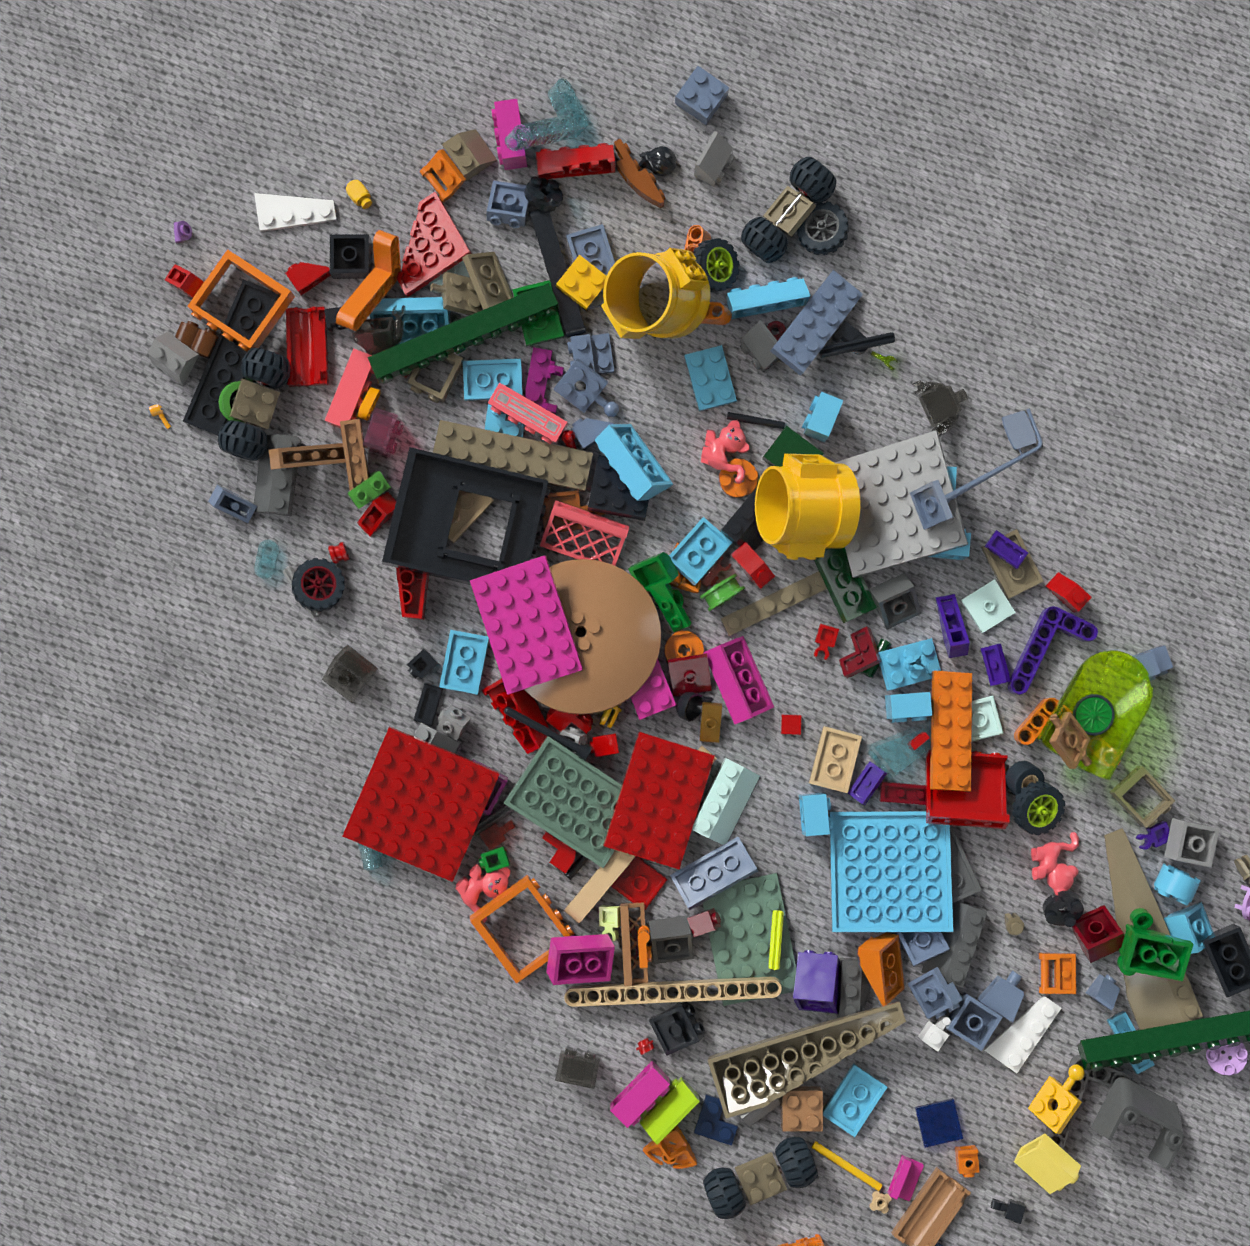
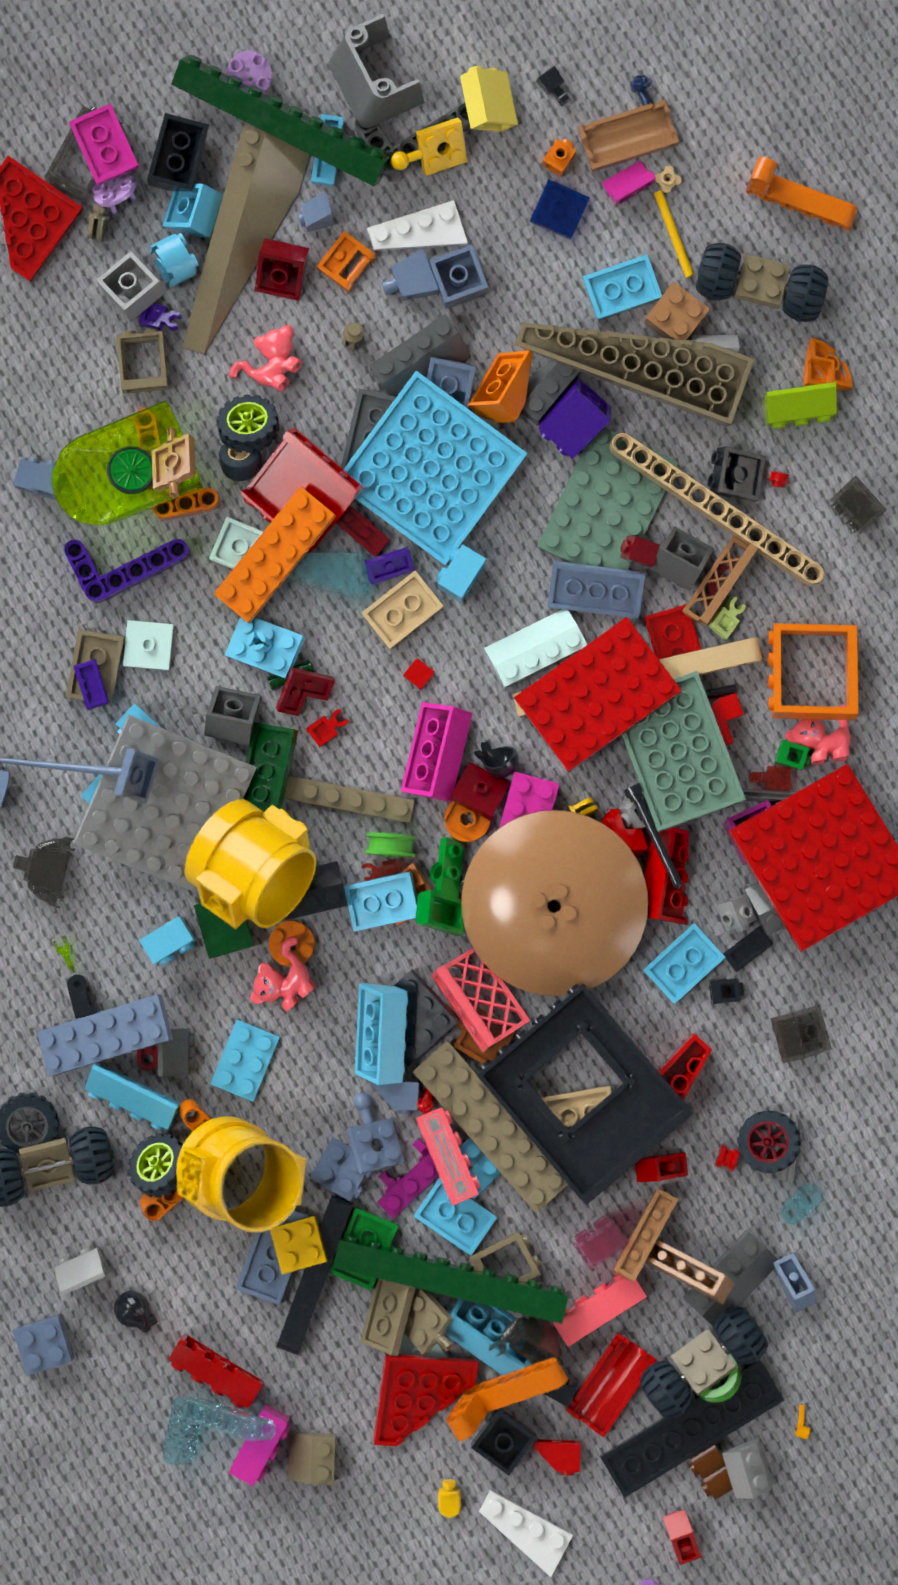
camera: 140 degrees left, 0 degrees up
(269, 321) = (596, 1445): orange window -> none
(369, 403) = (592, 1281): light orange beam -> none
(369, 489) = (653, 1196): bright green bracket -> none
(447, 172) = (348, 1455): orange plate -> none
(507, 204) = (311, 1378): sand blue plate -> none
(526, 624) = (600, 950): dark pink plate -> none
(538, 187) = (260, 1363): black plate -> none
(580, 959) = (780, 602): dark pink brick -> none
(604, 745) = (609, 784): red slope -> none
(640, 181) = (167, 1303): dark orange slope -> none
(640, 1095) = (816, 438): dark pink brick -> none
(644, 950) = (715, 566): orange plate -> none
(709, 1122) = (771, 366): dark blue plate -> none
(710, 722) = (493, 732): pearl gold plate -> none
(752, 565) = (342, 849): red slope -> none
(755, 420) = (232, 986): black bar -> none
(776, 940) = (584, 485): neon yellow axle -> none
(856, 345) = (82, 984): black axle -> none
(912, 705) = (296, 607): medium azure brick -> none
(918, 740) = (313, 568): red tile -> none
(934, 1034) = (502, 290): white brick -> none
(935, 994) = (475, 327): sand blue plate -> none
(952, 626) = (196, 651): dark purple slope -> none
(995, 664) = (184, 585): dark purple plate -> none
(1066, 917) = (298, 305): black plate -> none
(1068, 592) = (63, 601): red slope -> none
(1152, 951) = (246, 216): green piece -> none

